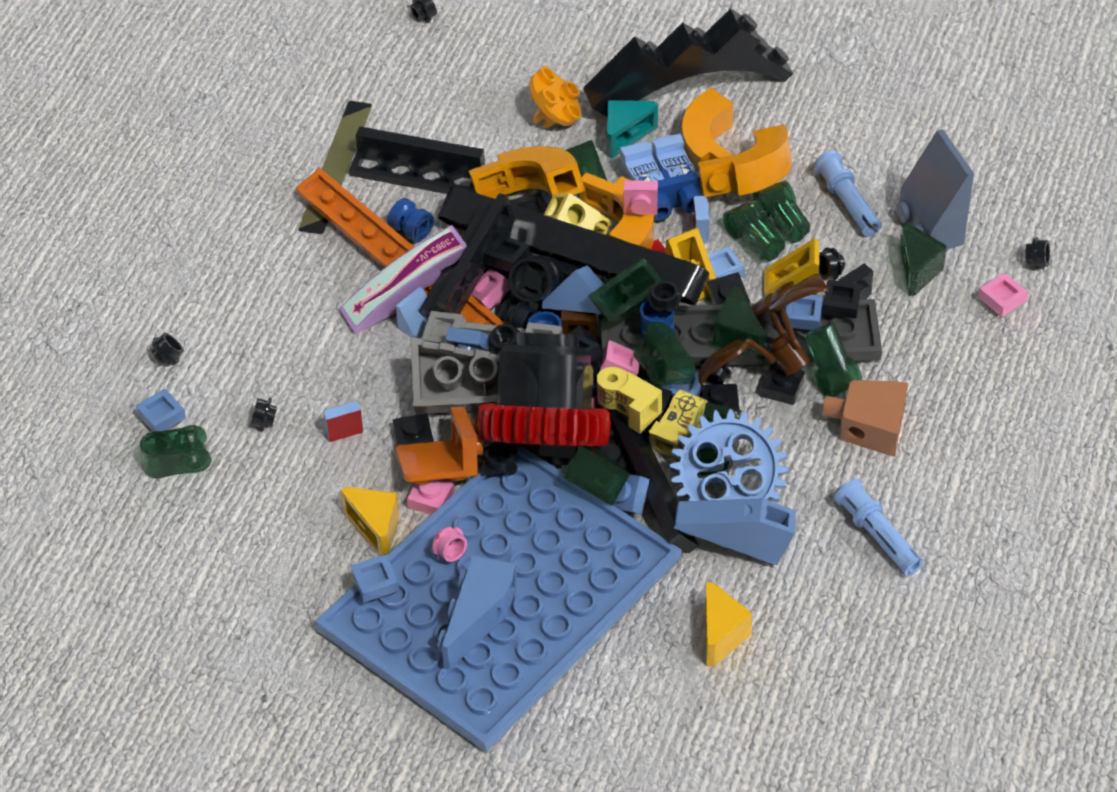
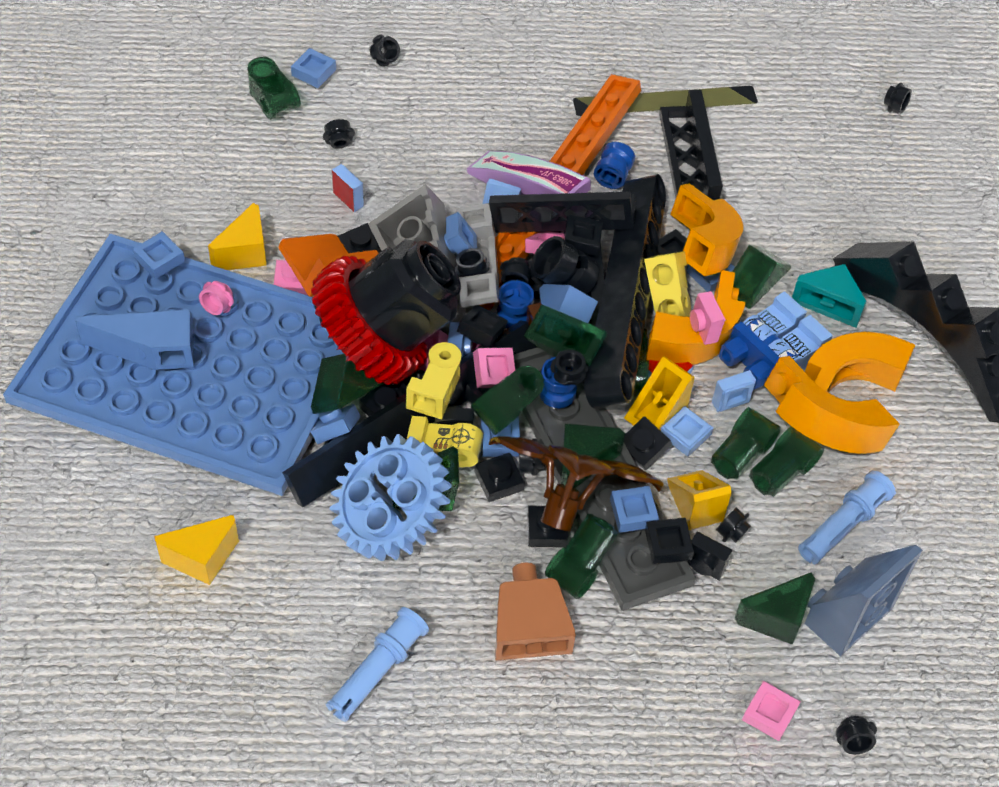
camera: 65 degrees right, 5 degrees up
(555, 99) = (843, 221): light orange plate -> none
(744, 525) = (317, 524): medium blue slope -> none

